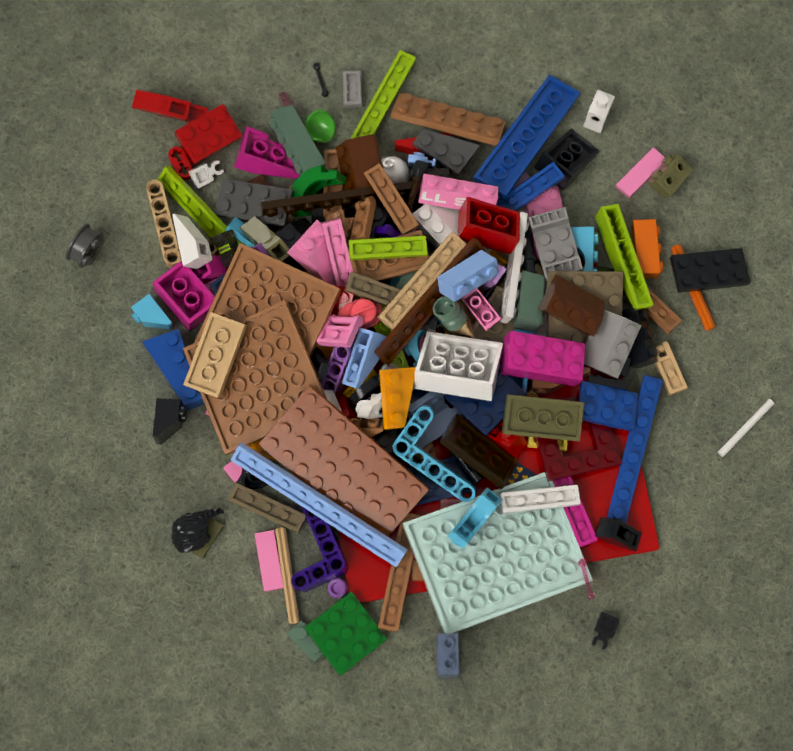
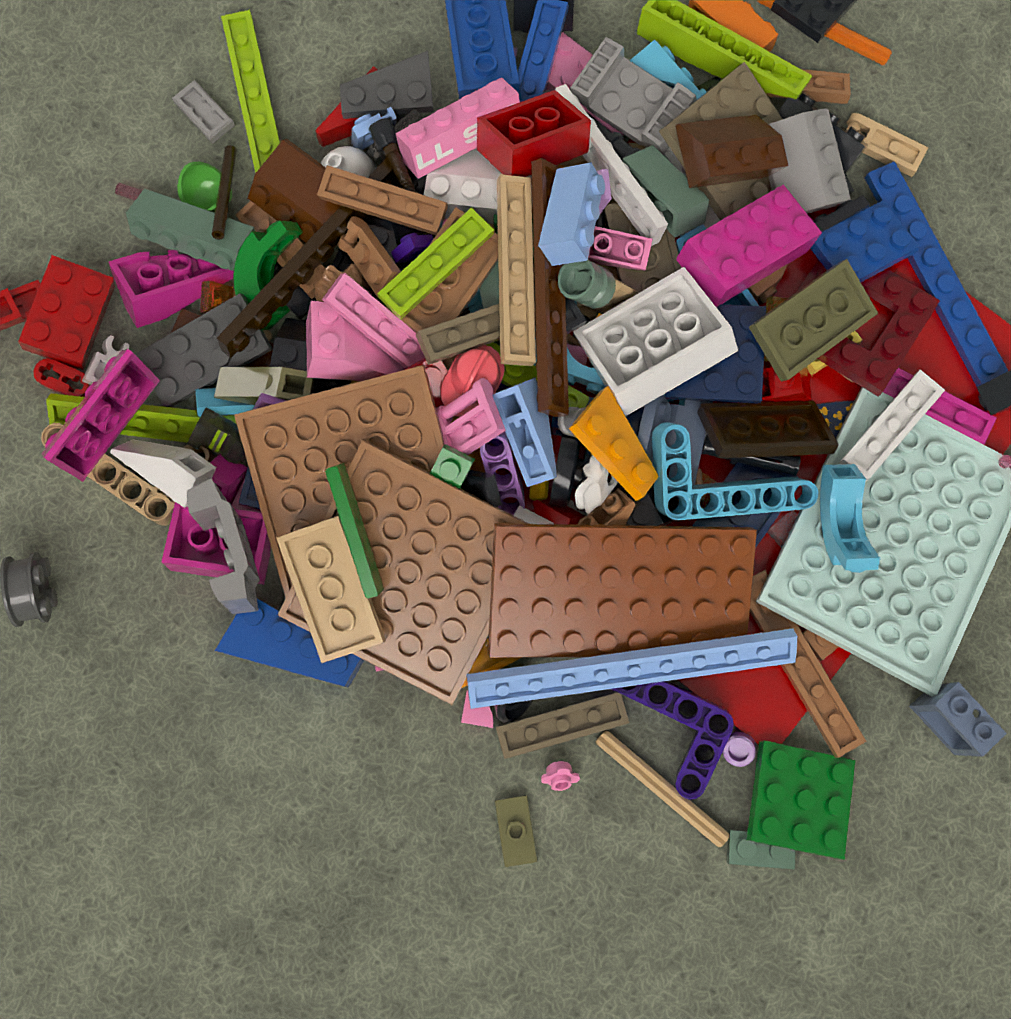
camera: 40 degrees left, 5 degrees up
(150, 314) = (189, 605): medium azure slope -> none
(167, 419) = (337, 722): black slope -> none
(176, 320) = (212, 510): none -> light grey plate
(182, 194) = (101, 415): none -> dark pink slope
(190, 530) = (495, 839): black hair -> none
(245, 529) = (560, 776): none -> bright pink plate
(247, 337) = (354, 530): none -> green tile
(269, 561) = (623, 790): bright pink tile -> none
(281, 180) = (213, 295): none -> clear orange plate
(314, 344) = (452, 466): none -> plate
(316, 66) = (133, 121): black hinge -> none
(325, 137) = (224, 191): none -> dark brown piece
(448, 119) = (357, 52): medium nougat plate -> none

